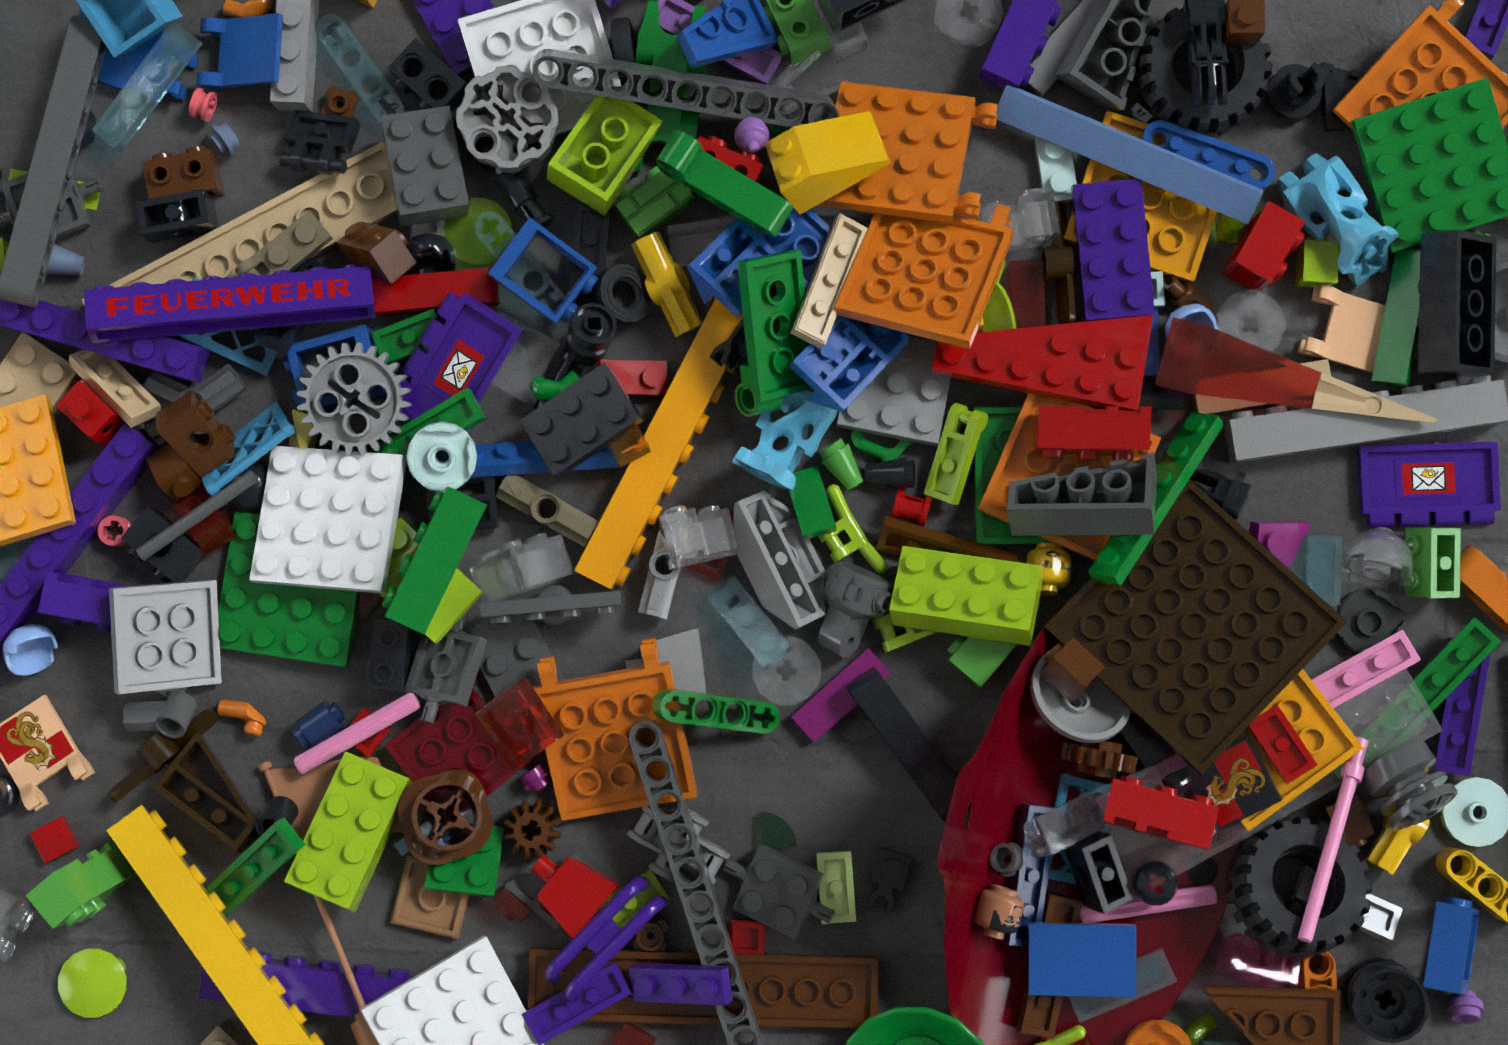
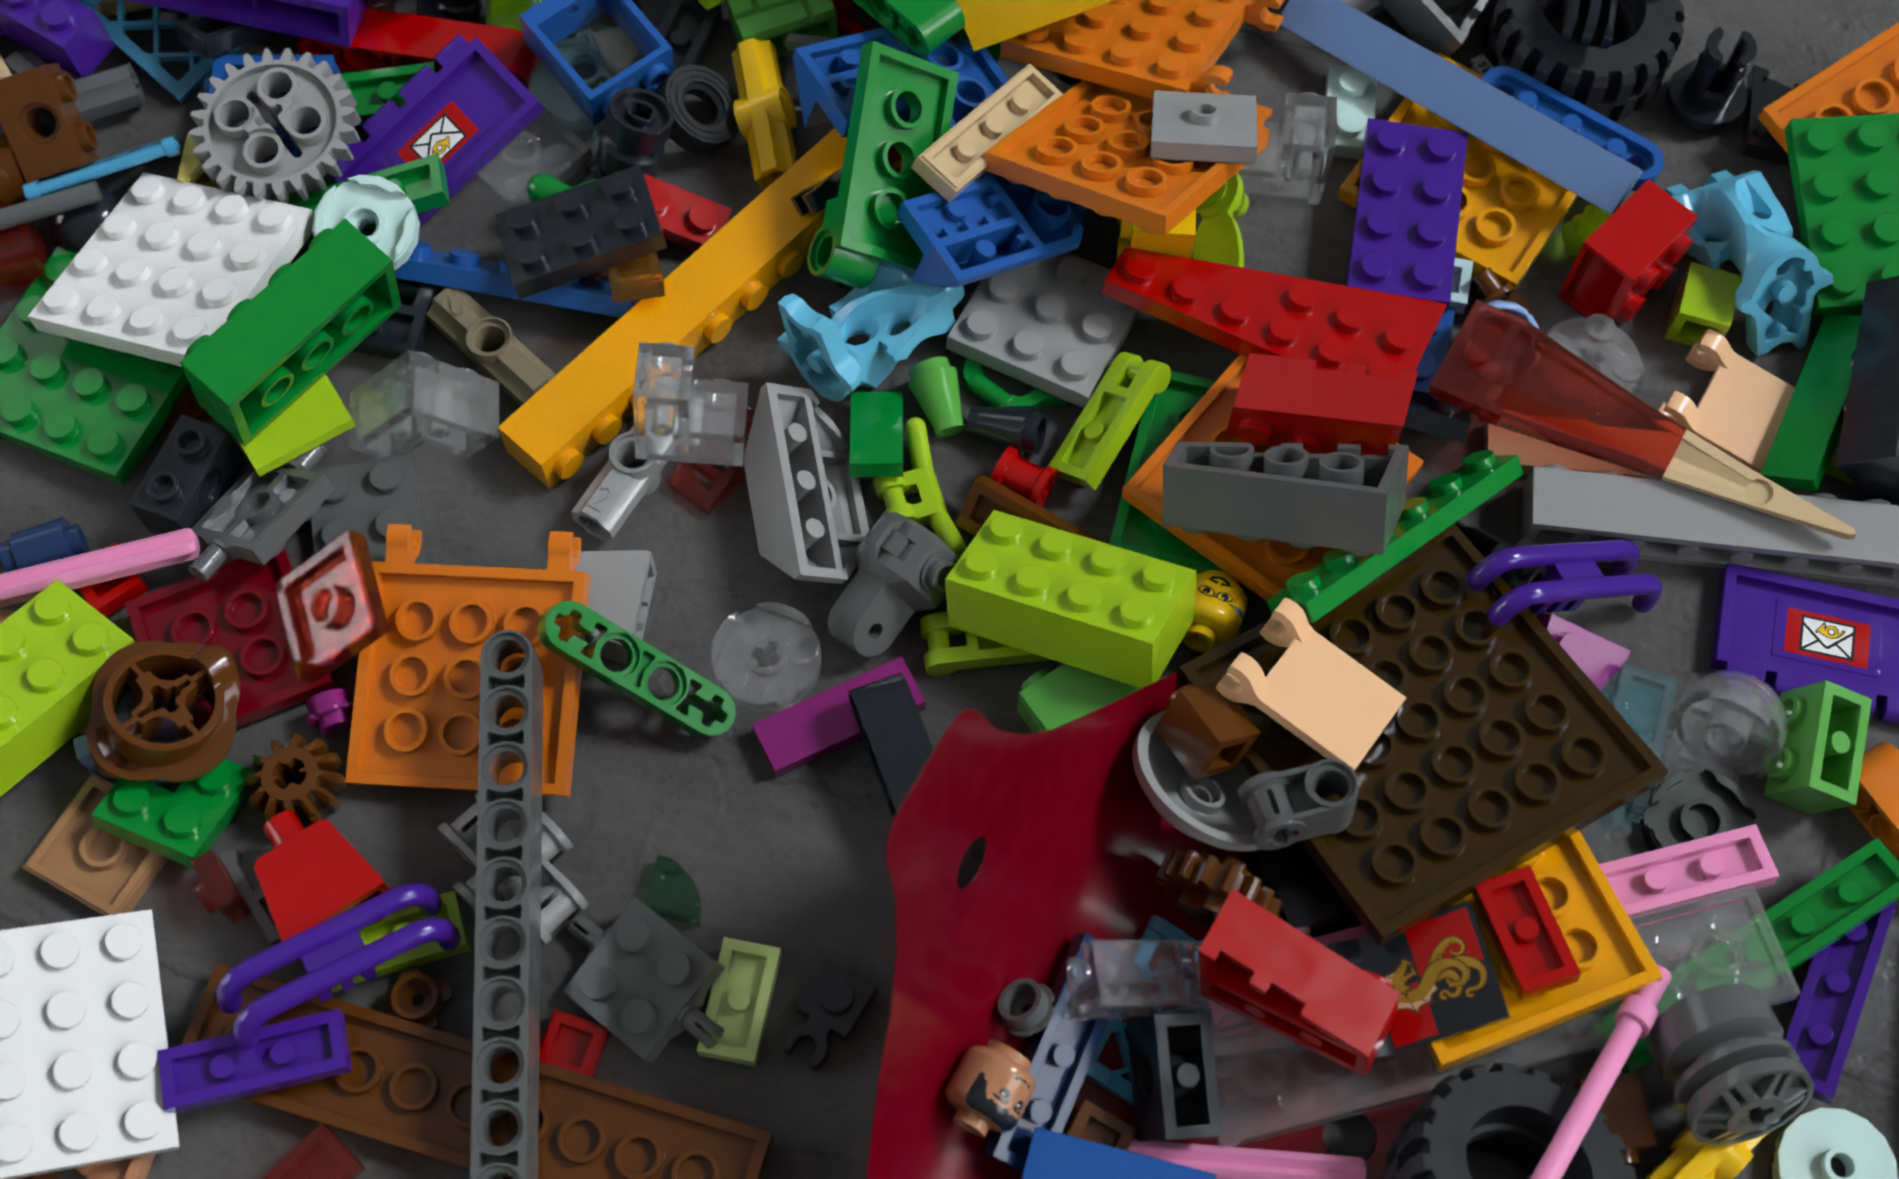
camera: 10 degrees right, 20 degrees down
(552, 606) = (448, 463): dark grey plate -> none
(680, 984) = (429, 1066): dark purple plate -> none
(750, 623) = (734, 573): clear light blue plate -> none
(972, 245) = (1204, 127): none -> light grey plate
(1027, 292) = (1272, 237): clear red plate -> none
(1060, 268) = (1325, 217): dark brown piece -> none
(1132, 630) = (1314, 689): none -> light nougat flag
(1136, 709) = (1291, 805): none -> dark grey piece
(1160, 870) = (1277, 1100): black piece -> none
(1268, 500) = (1569, 578): none -> dark purple piece

